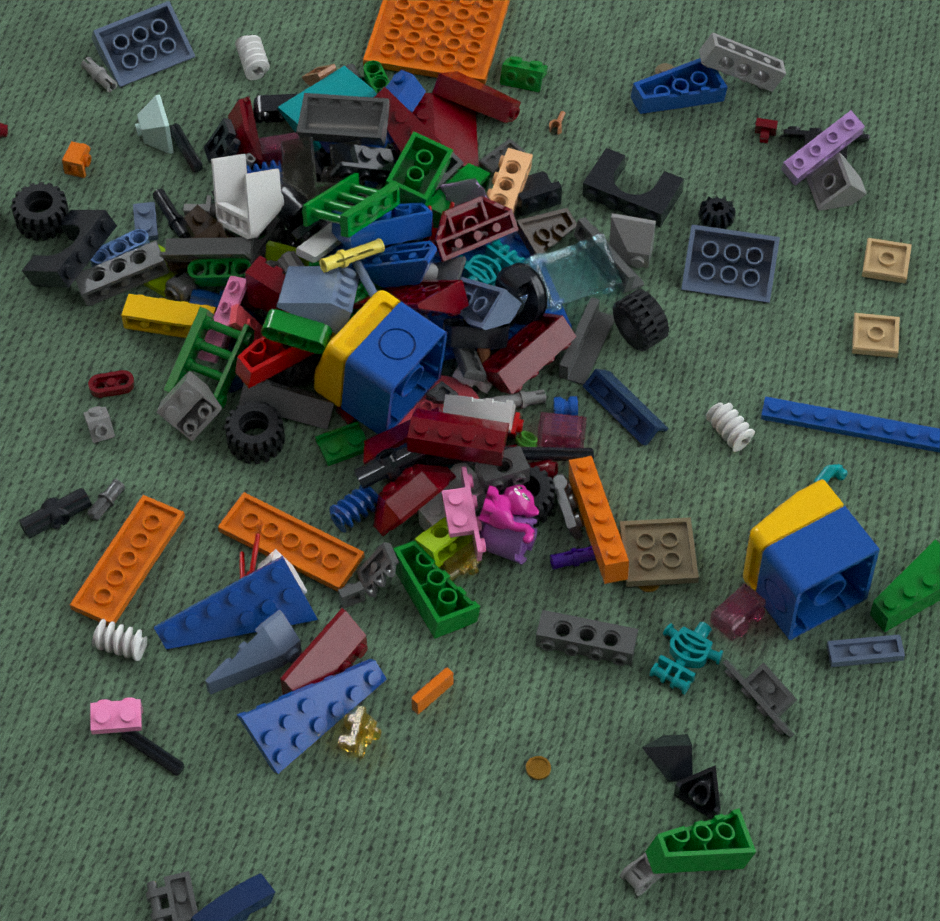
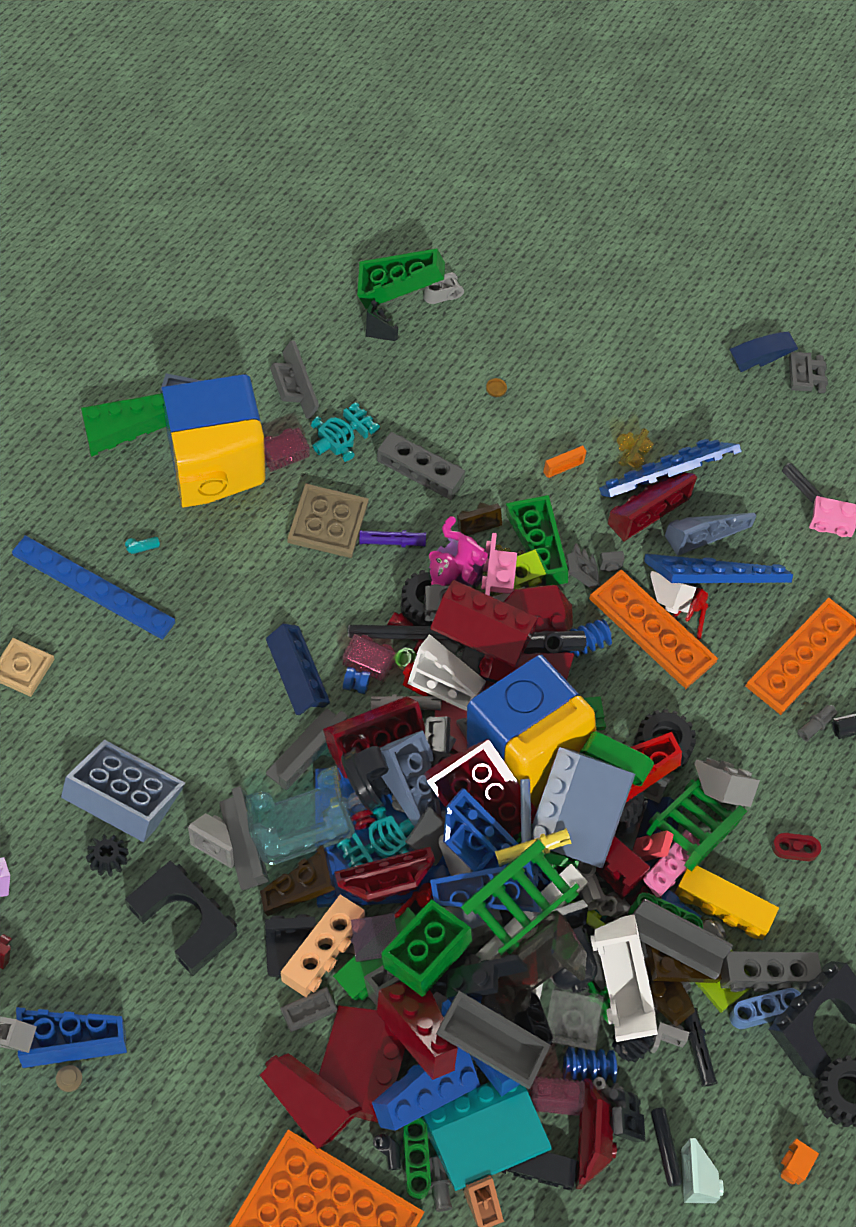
camera: 170 degrees left, 5 degrees up
(99, 424) = (815, 807): light grey bracket -> none
(119, 641) = (823, 580): white piece -> none
(146, 219) = (730, 1051): sand blue plate -> none
(497, 607) = (479, 520): none -> dark brown tile
(523, 74) = (236, 1131): green bracket -> none
(557, 123) = (224, 1045): nougat hand -> none
(568, 503) = (392, 583): dark grey hinge -> none
(598, 520) = (373, 552): orange brick -> none
(640, 320) = (249, 734): black tyre -> none
(672, 756) = (387, 362): black slope -> none
(730, 425) = (210, 611): white piece -> none

